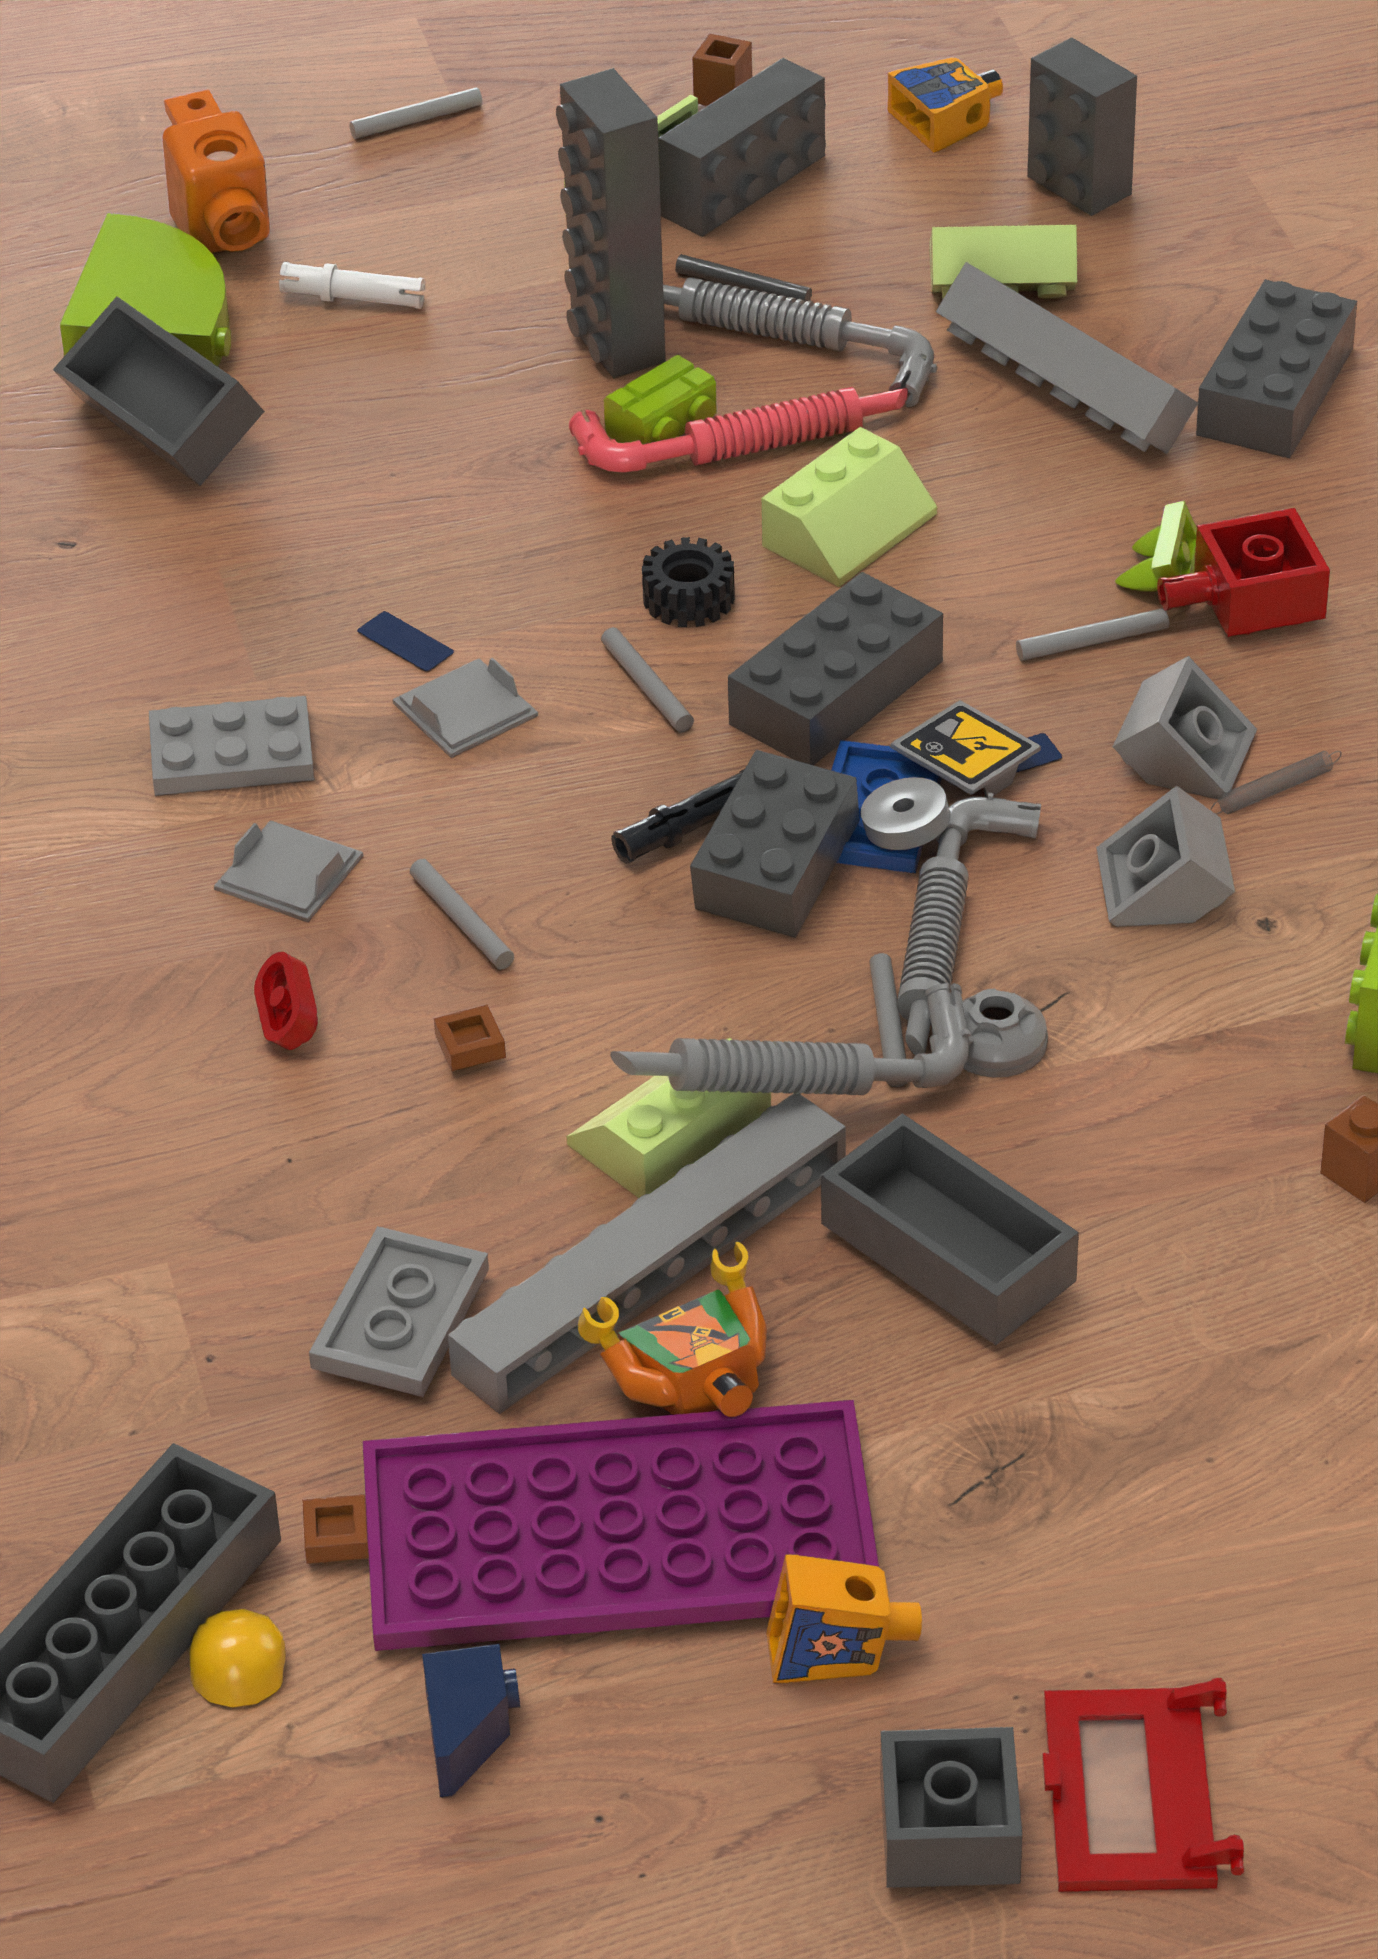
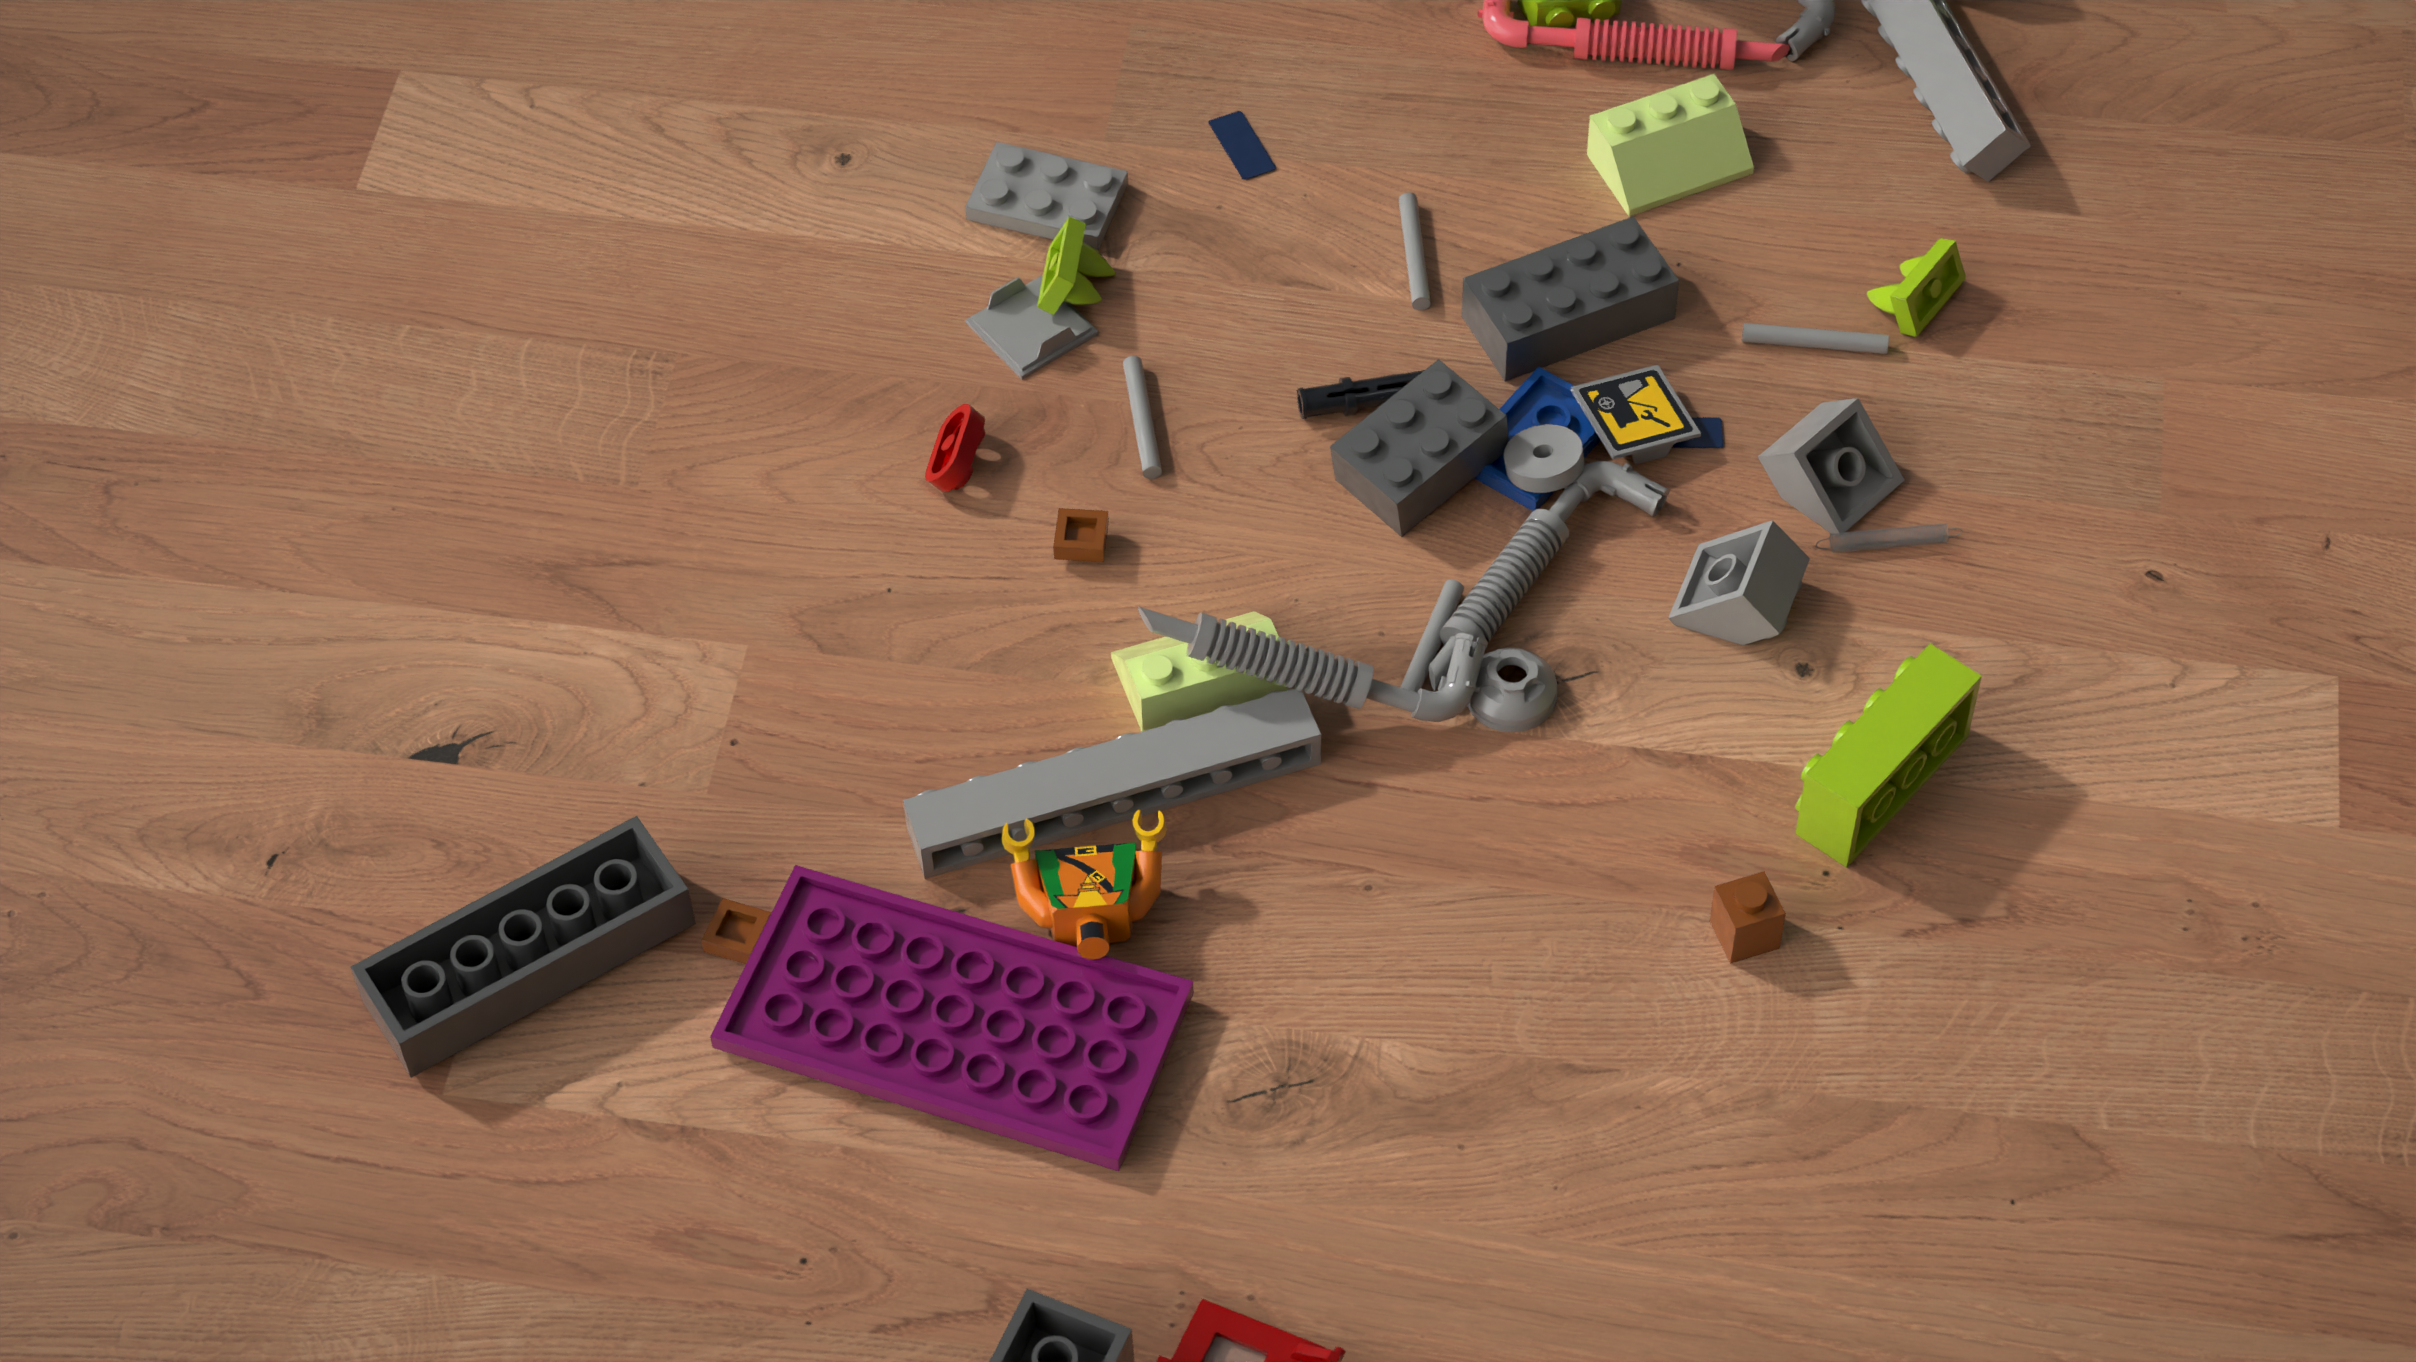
camera: 25 degrees right, 10 degrees up
(237, 1658) = (607, 1012): yellow hair -> none
(303, 799) = (1066, 268): none -> lime tile
(399, 1311) = (888, 757): light grey plate -> none
(466, 706) = (1254, 225): light grey piece -> none
(467, 1710) = (743, 1131): dark blue slope -> none
(688, 582) = (1497, 190): black tyre -> none
(834, 1620) = (1062, 1171): light orange torso -> none
(949, 1228) = (1354, 859): dark grey piece -> none
(1254, 573) = (1980, 332): red brick -> none
(1276, 368) = (2126, 132): dark grey piece -> none

